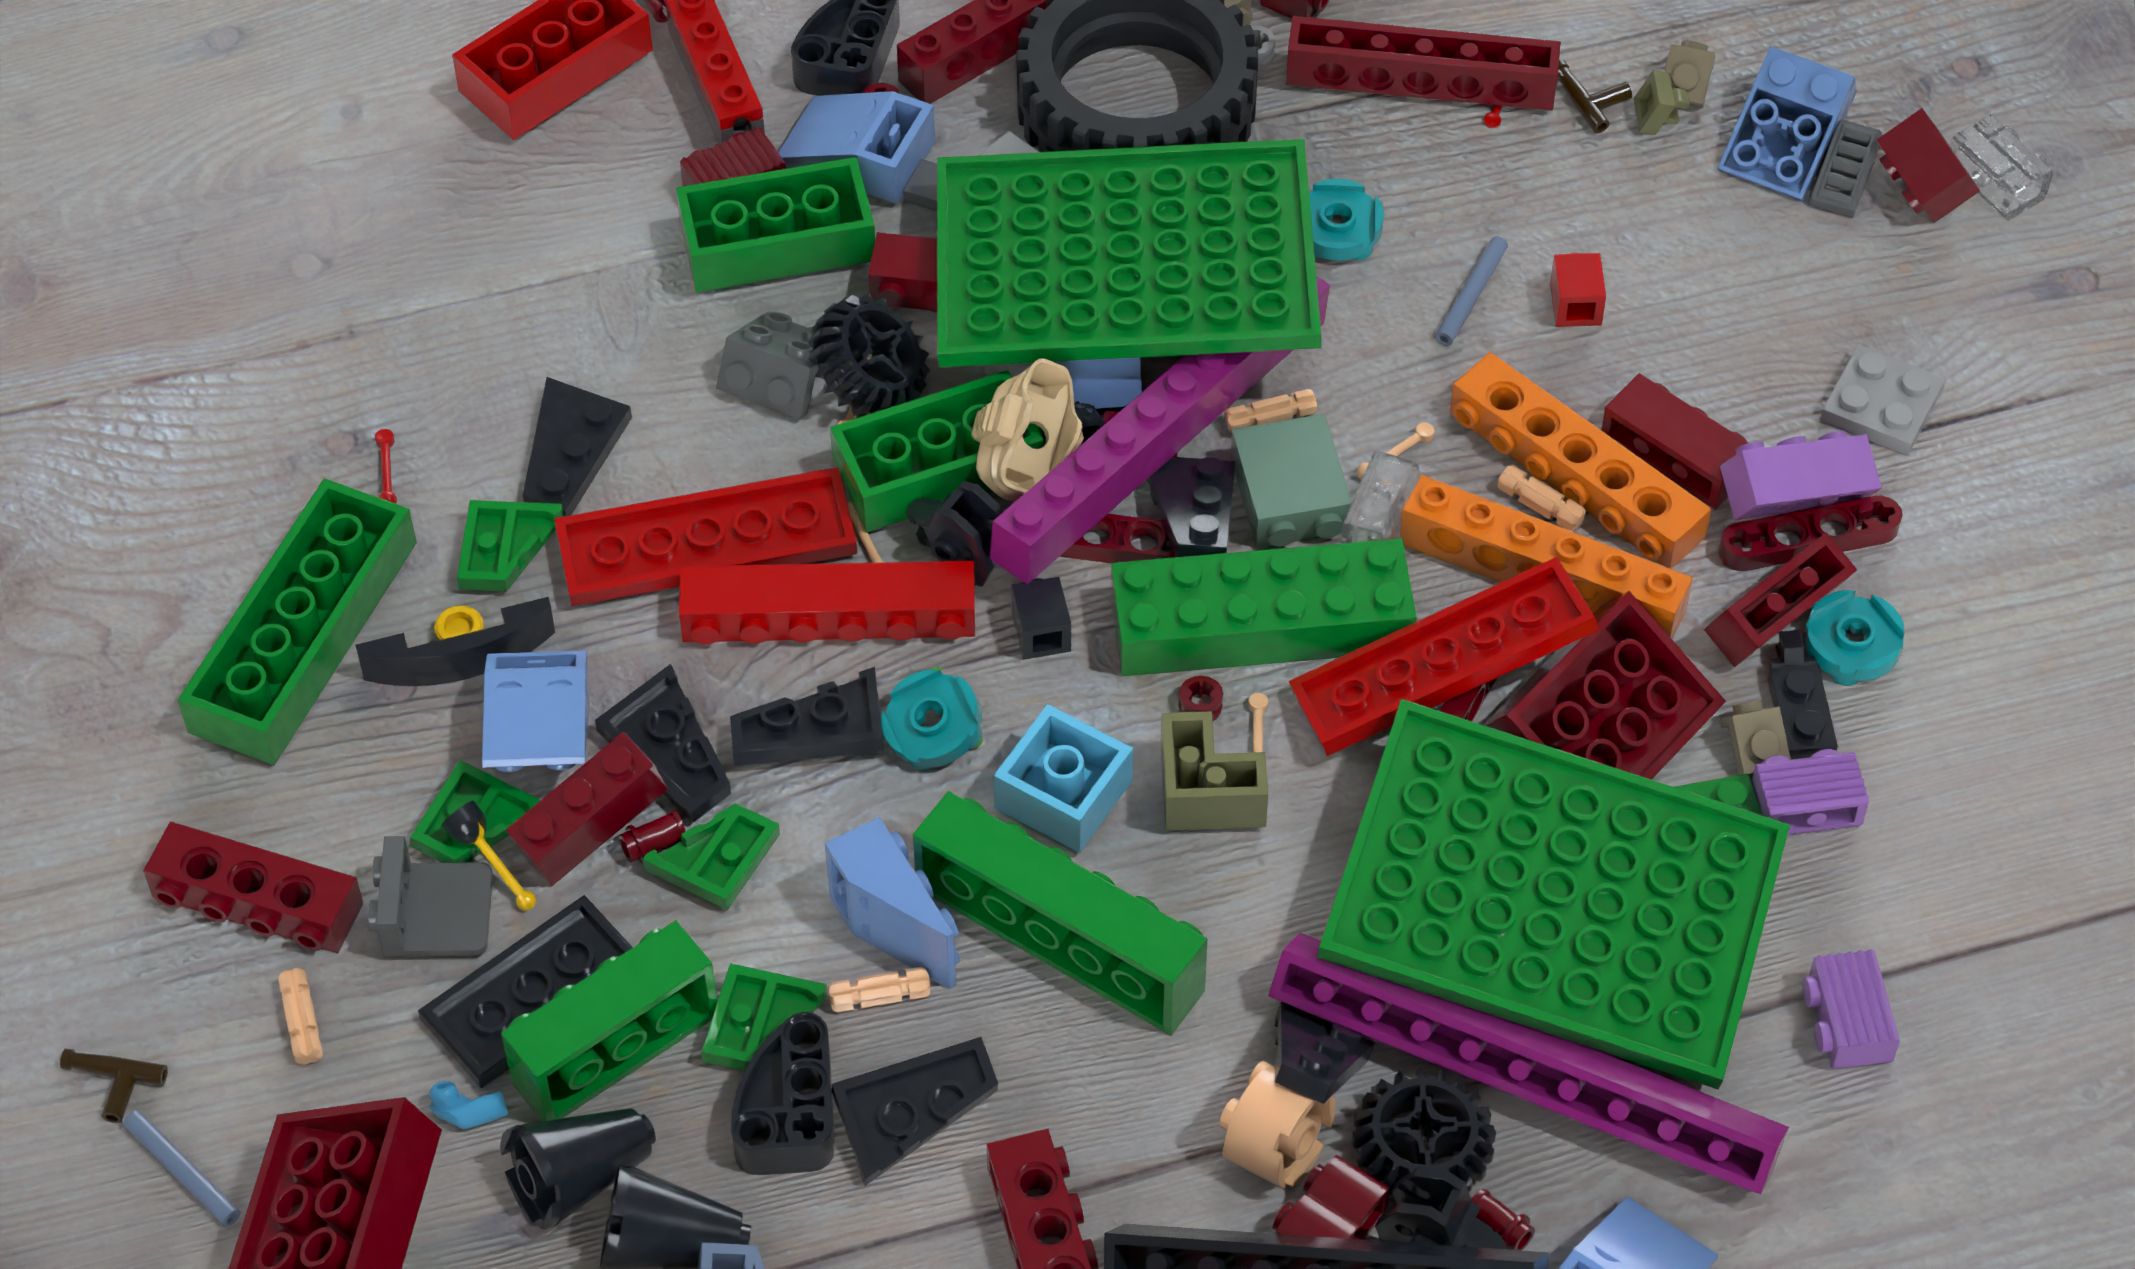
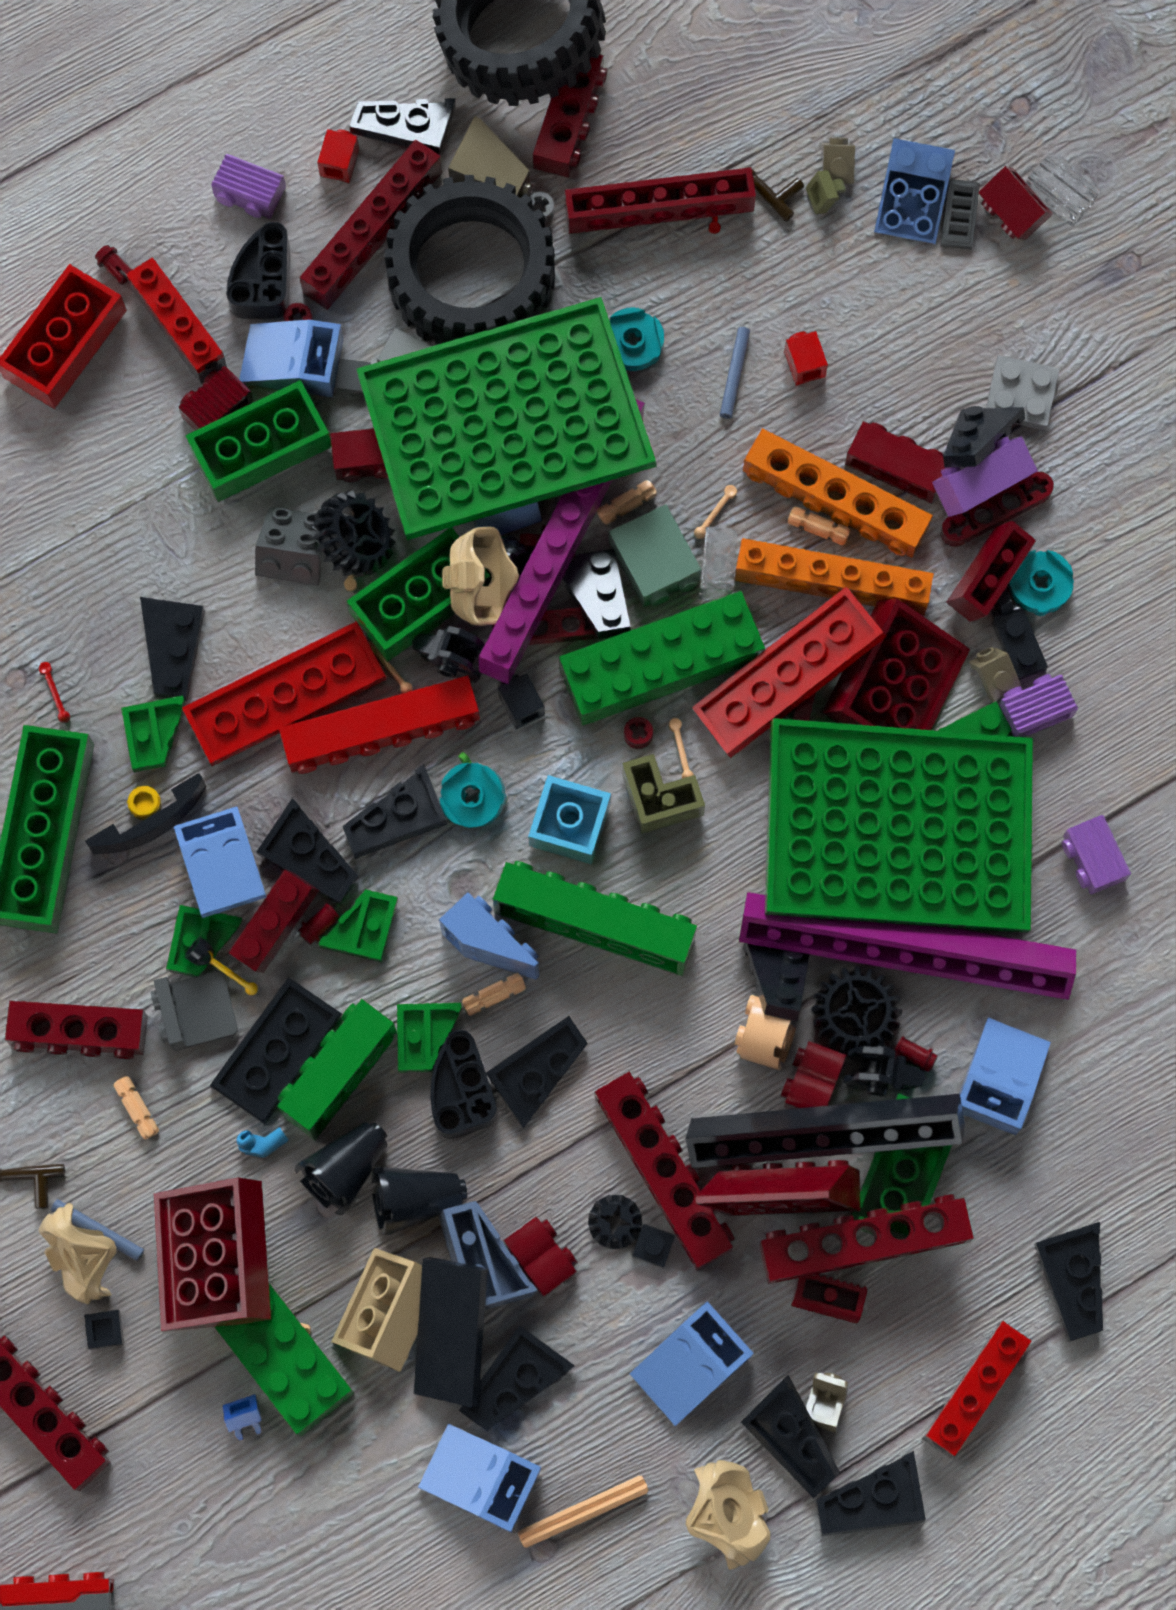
camera: 15 degrees left, 20 degrees up
(135, 1181) = (78, 1253): none -> tan piece
(1806, 419) = (976, 434): none -> black wing

